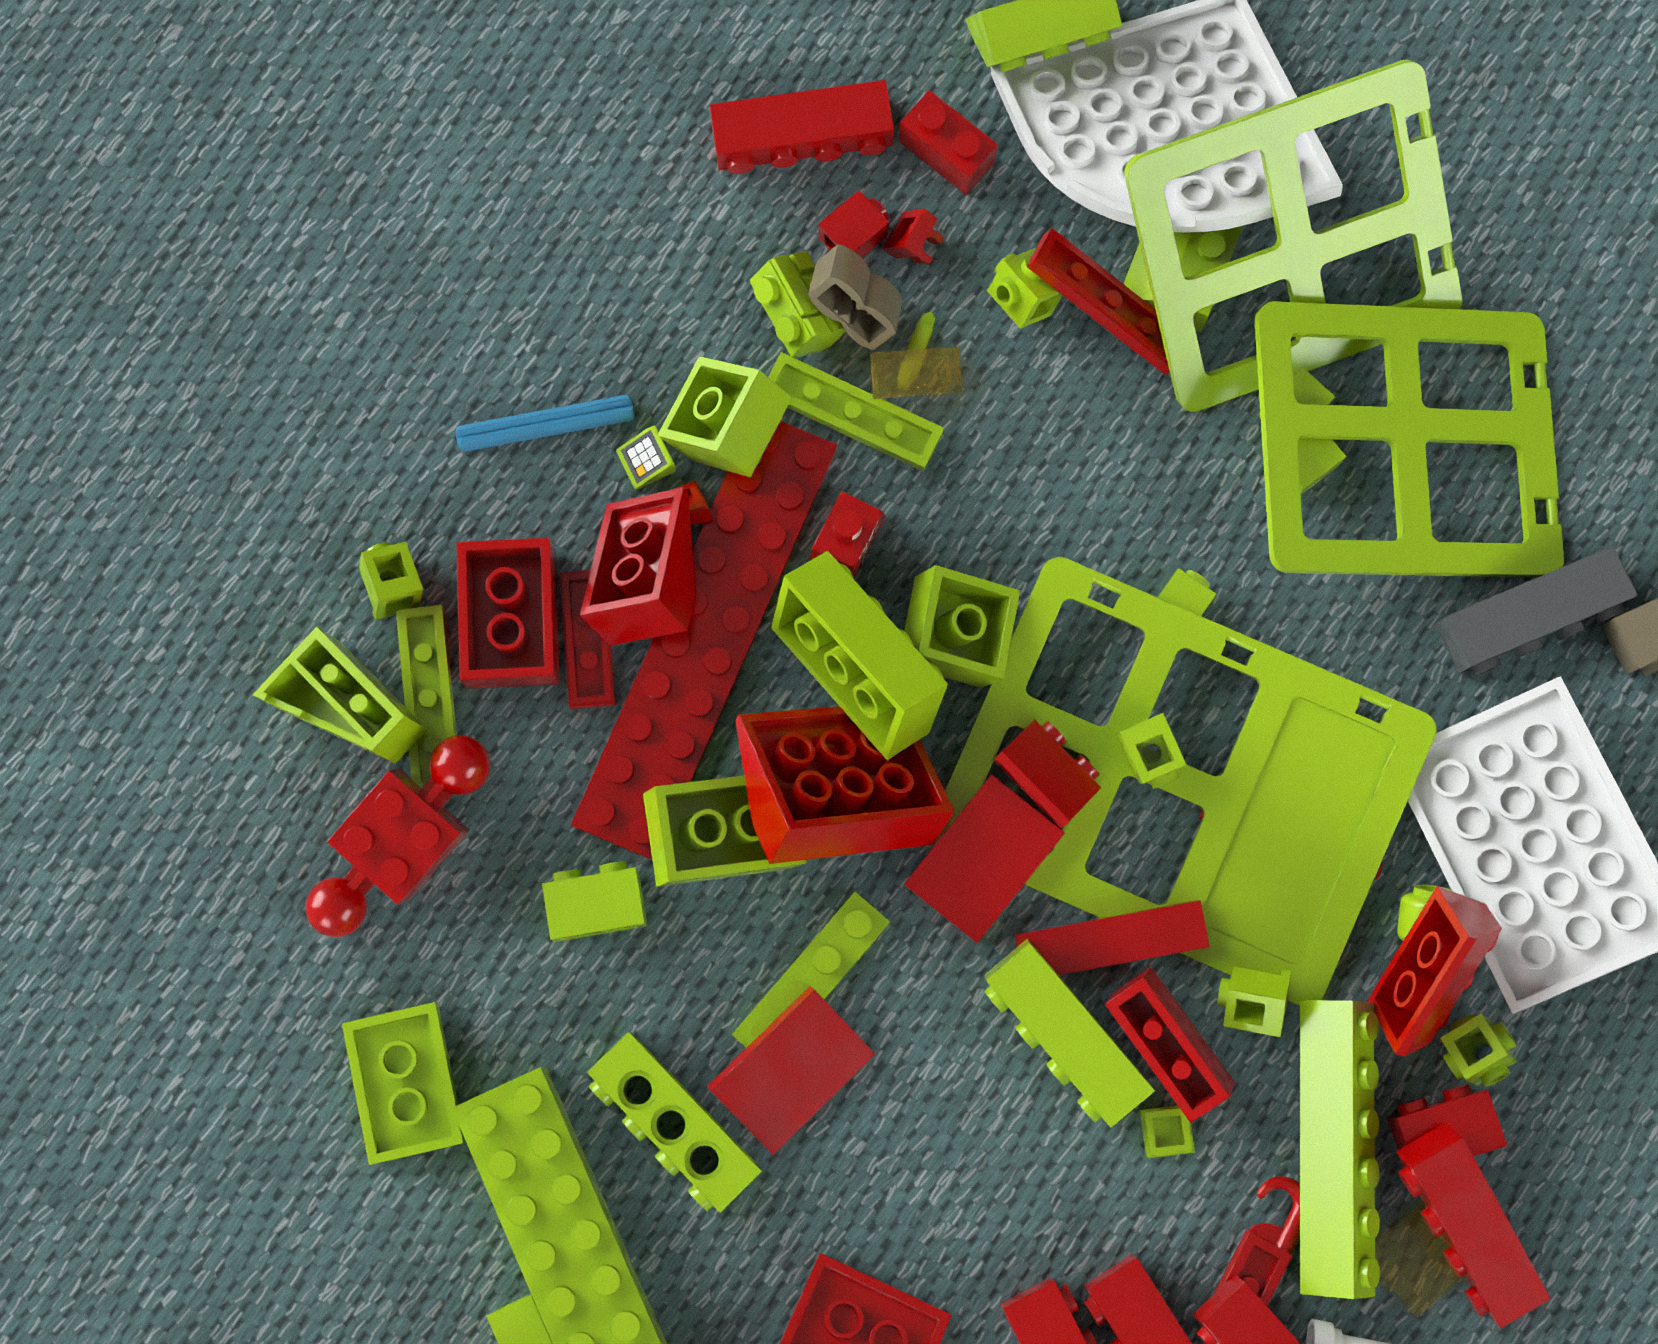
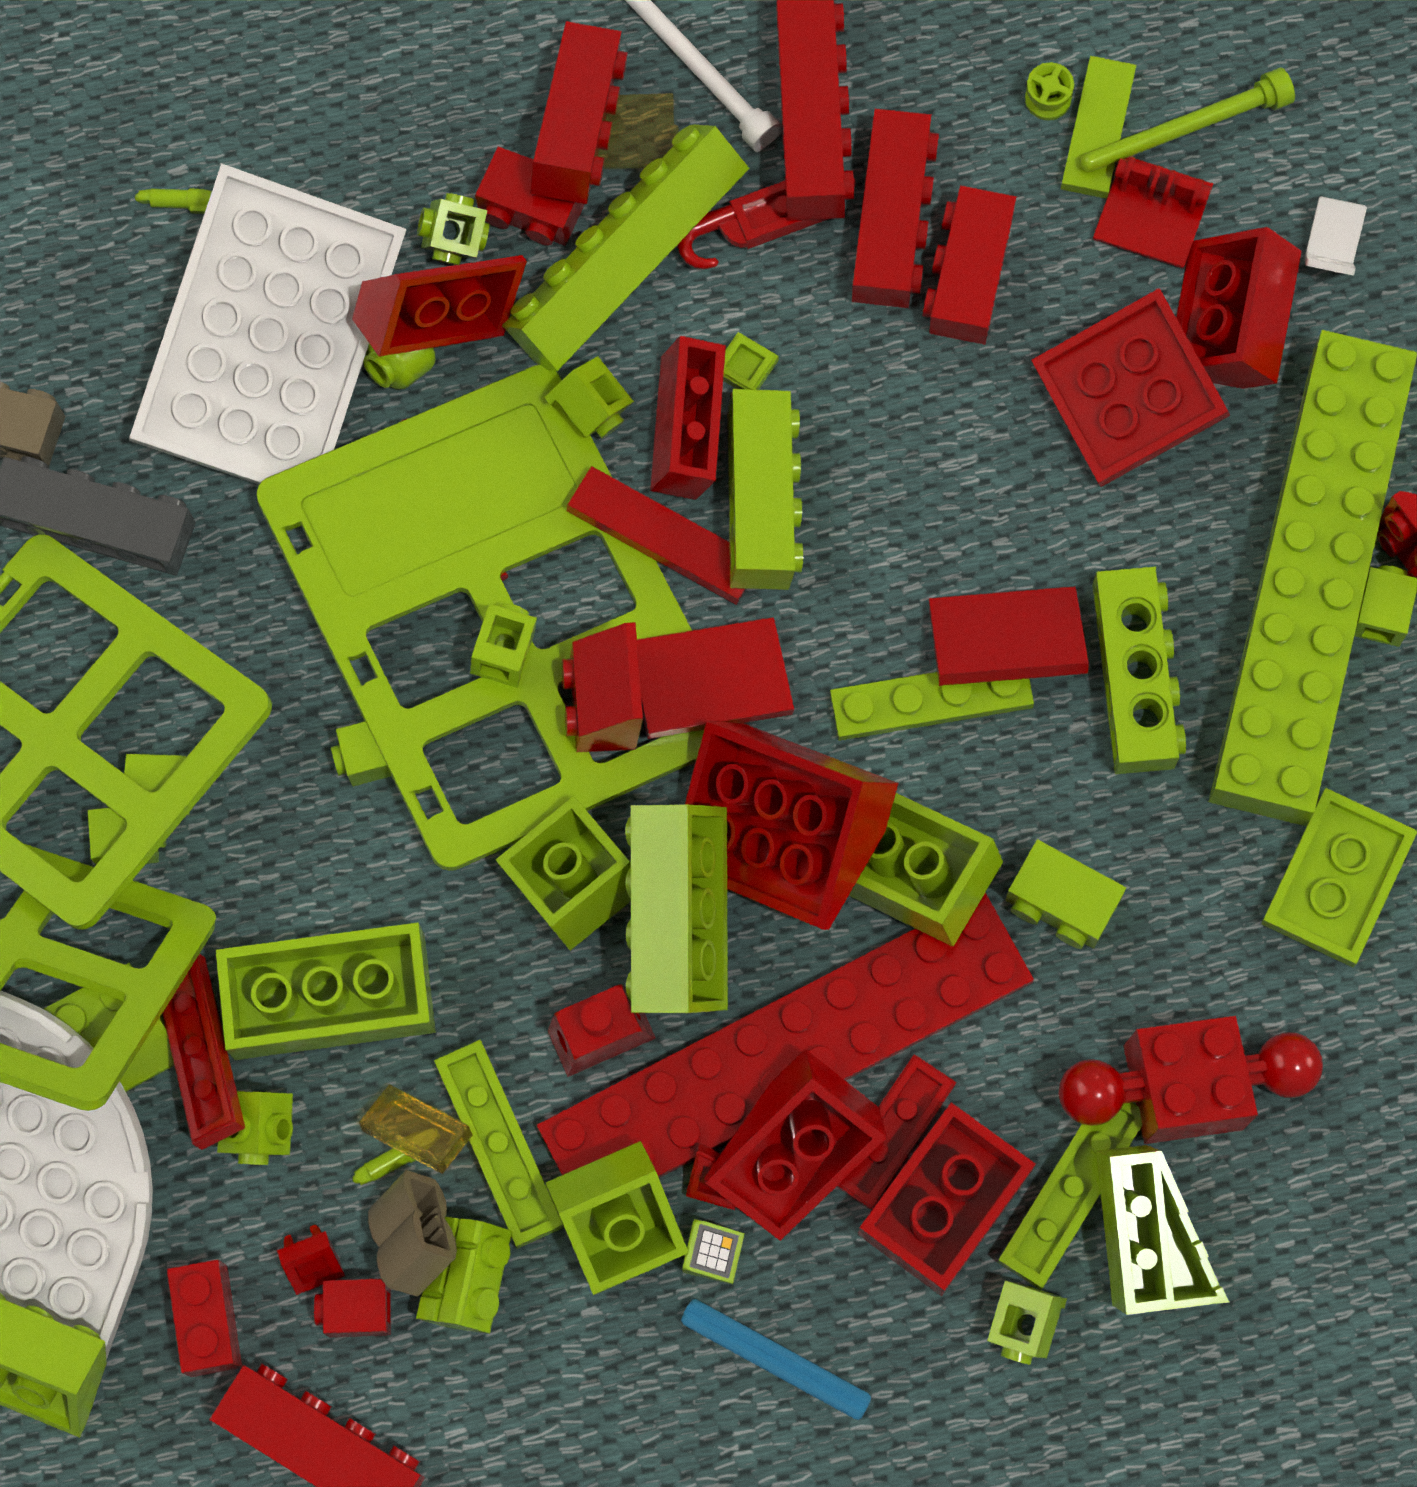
camera: 135 degrees left, 5 degrees down
(1058, 410) = (325, 991): none -> lime brick

